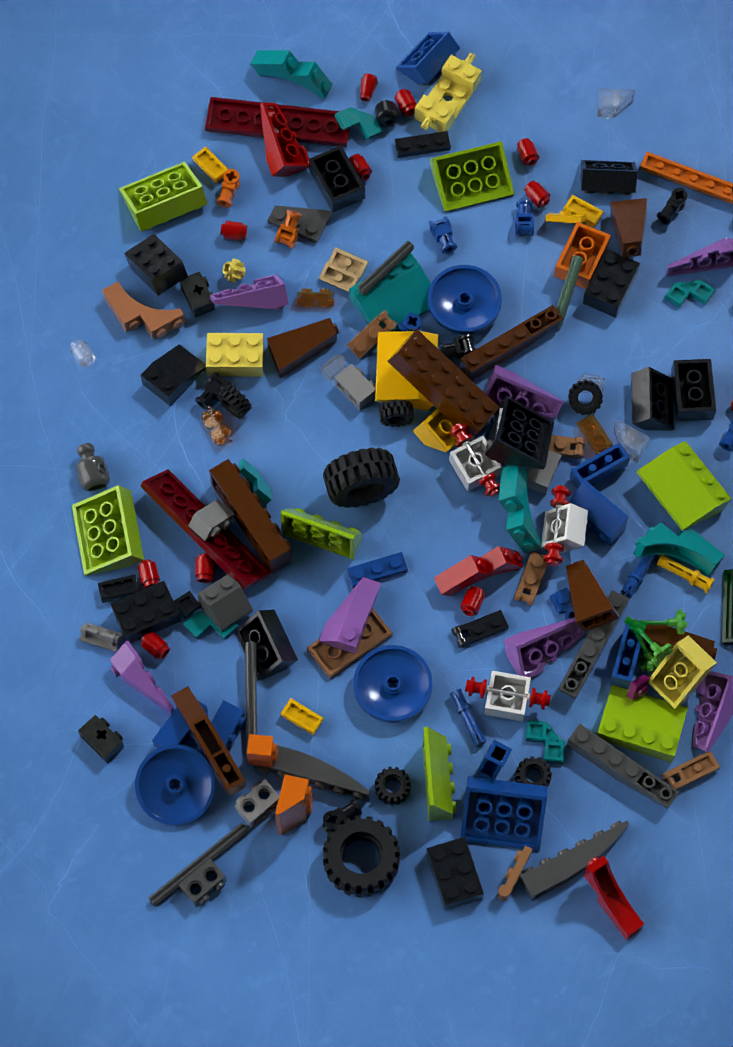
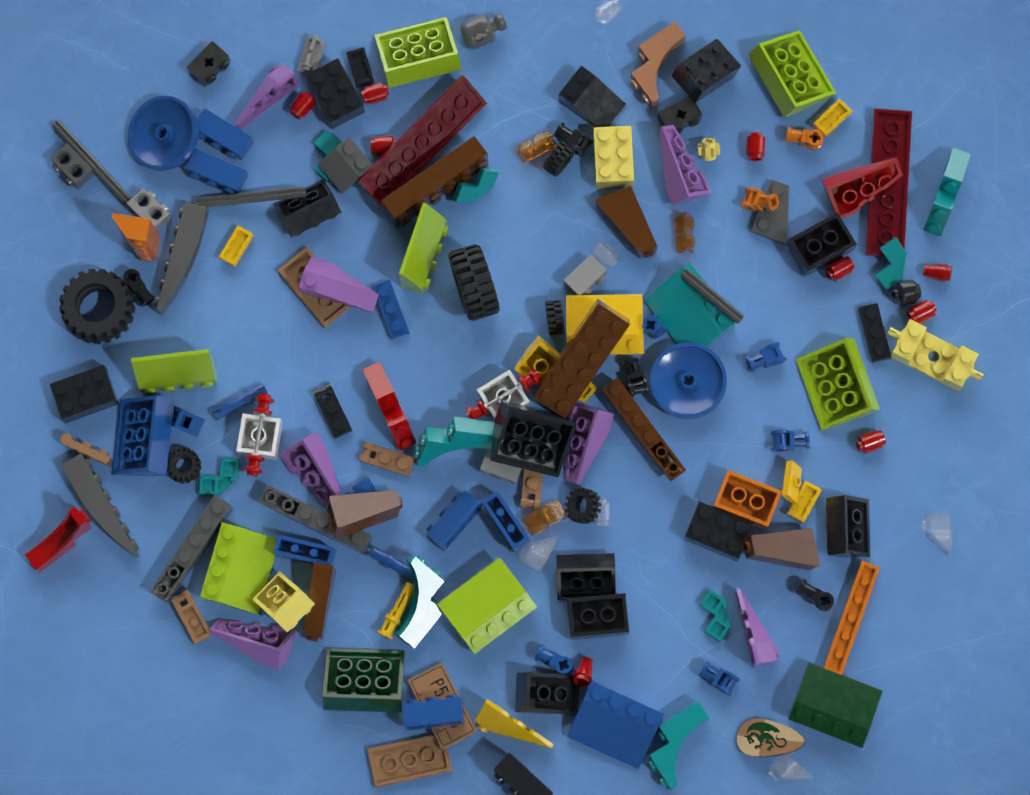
camera: 90 degrees right, 10 degrees up
(187, 604) = (343, 130): black tile -> none
(209, 741) = (199, 157): reddish brown slope -> none
(211, 520) = (427, 144): light grey brick -> none
(261, 750) = (189, 204): orange brick -> none
(343, 270) = (718, 259): tan slope -> none
(369, 335) = (639, 284): medium nougat plate -> none
(392, 683) = (268, 327): blue dish -> none
(398, 775) = (166, 323): black tyre -> none
(428, 57) = (979, 333): blue slope -> none
(472, 601) = (359, 401): red brick -> none
(537, 193) = (820, 453): red brick -> none
(563, 526) = (434, 484): white brick -> none
(568, 286) = (704, 484): sand green axle -> none
(638, 687) = (272, 564): magenta plate -> none
(653, 659) = (302, 574): bright green plant -> none

